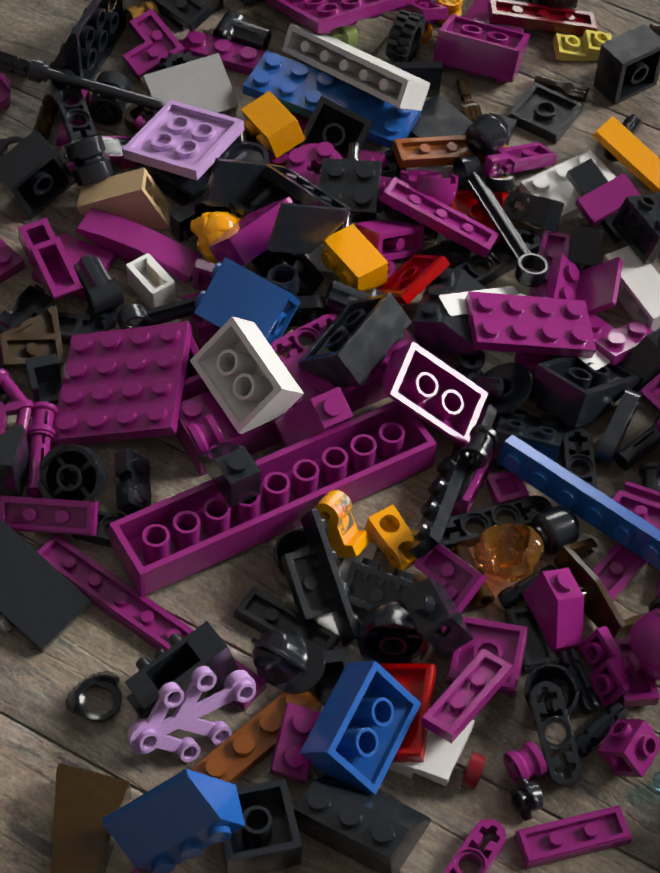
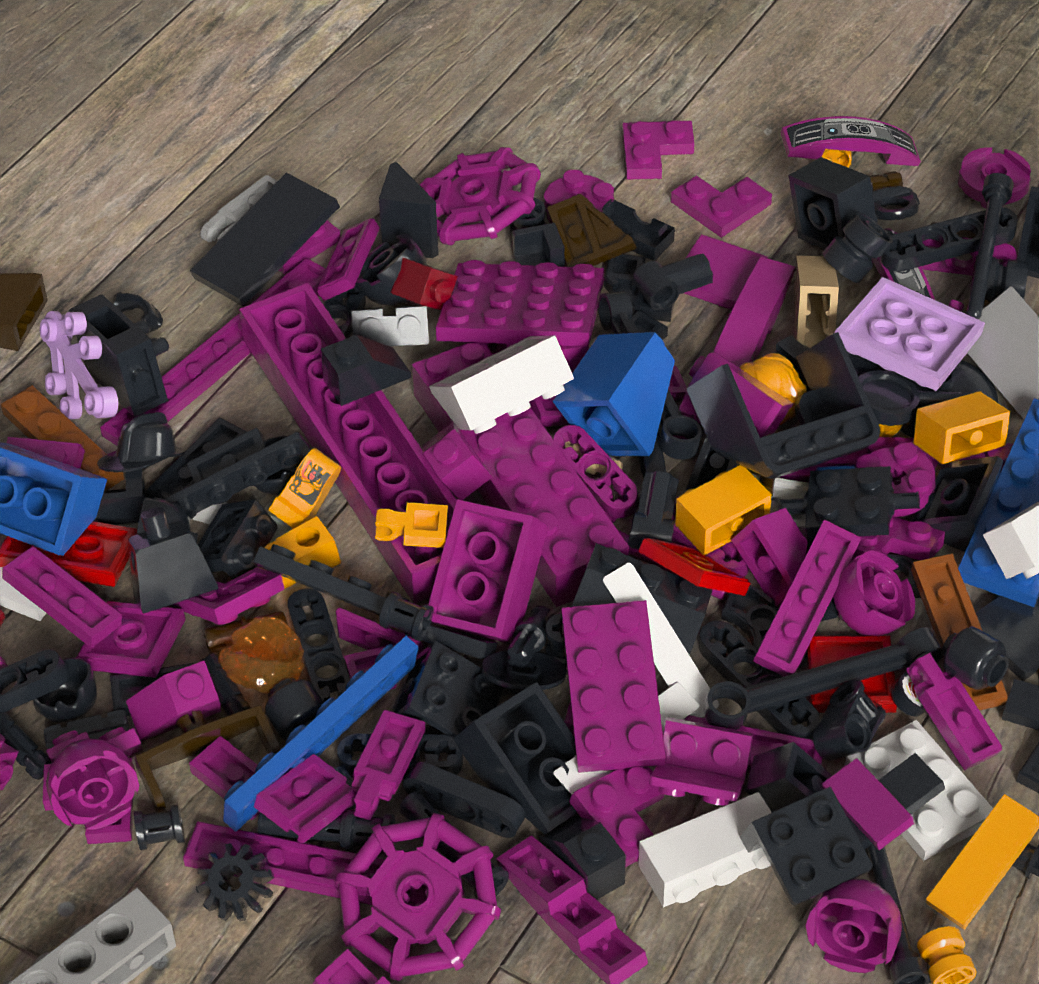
camera: 95 degrees right, 5 degrees down
(40, 436) = (461, 251): magenta pin -> none
(49, 259) = (712, 234): magenta slope -> none
(109, 442) = (424, 284): none -> dark red brick
(150, 281) = (693, 333): white piece -> none
(206, 433) = (416, 341): magenta wheel -> none
(356, 341) = (557, 486): black slope -> none
(399, 429) = (420, 524): none -> light orange plate
(606, 463) = (385, 761): none -> magenta hinge

